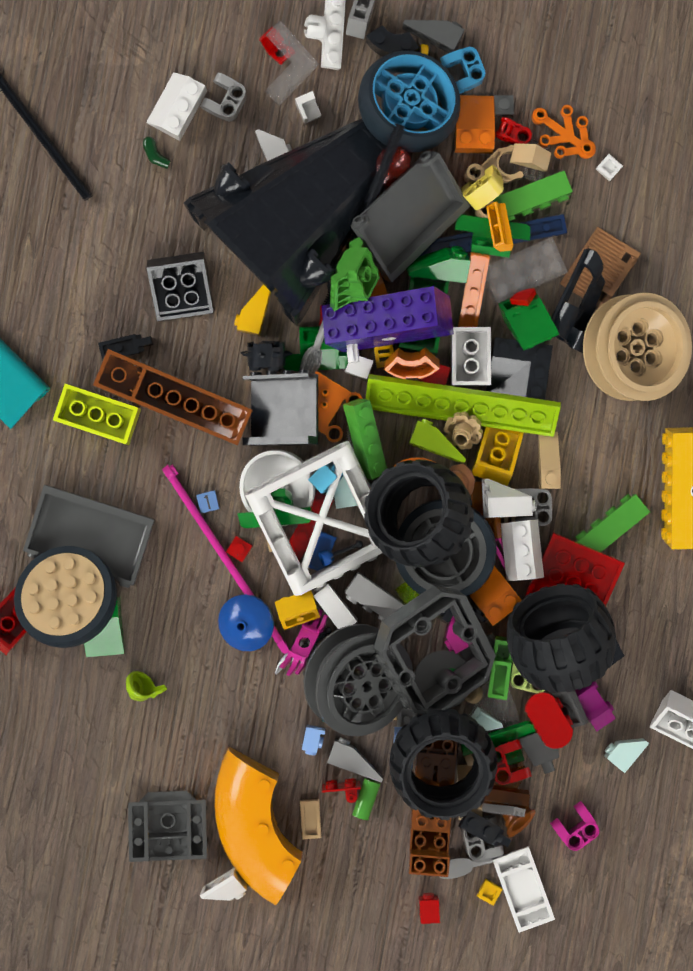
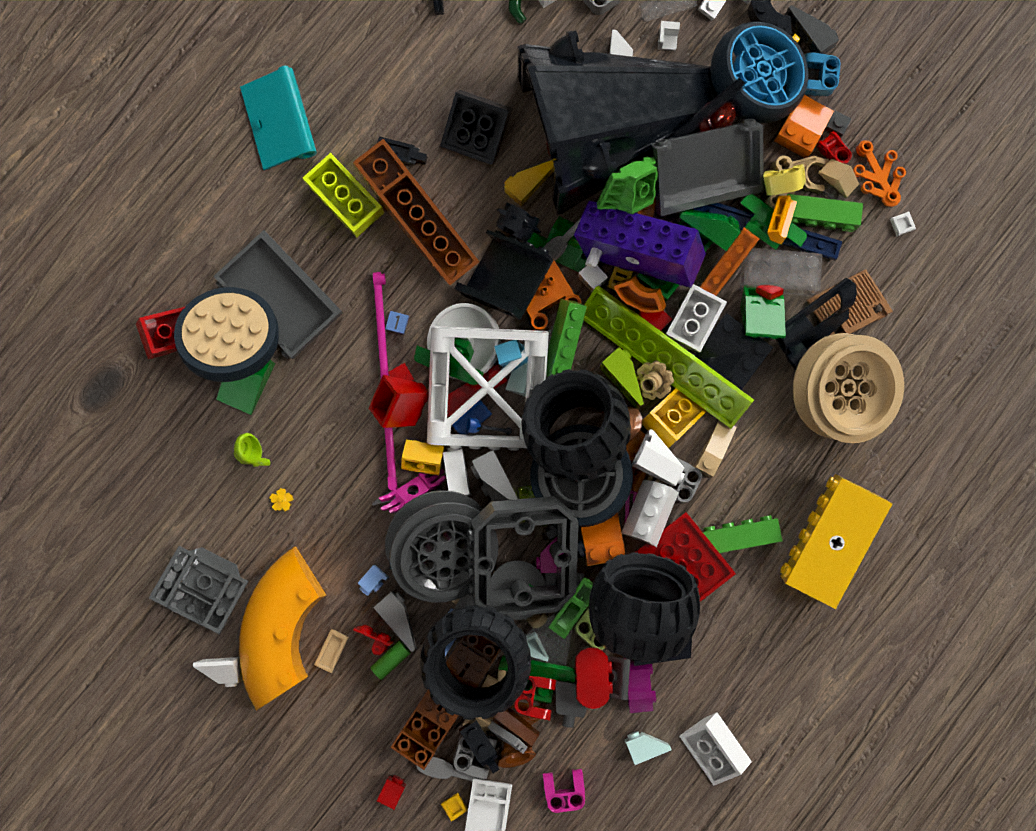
camera: 30 degrees right, 5 degrees down
(194, 713) = (281, 500): none -> yellow plant
(250, 574) = (398, 402): none -> red slope
(255, 617) = (381, 446): blue dish -> none

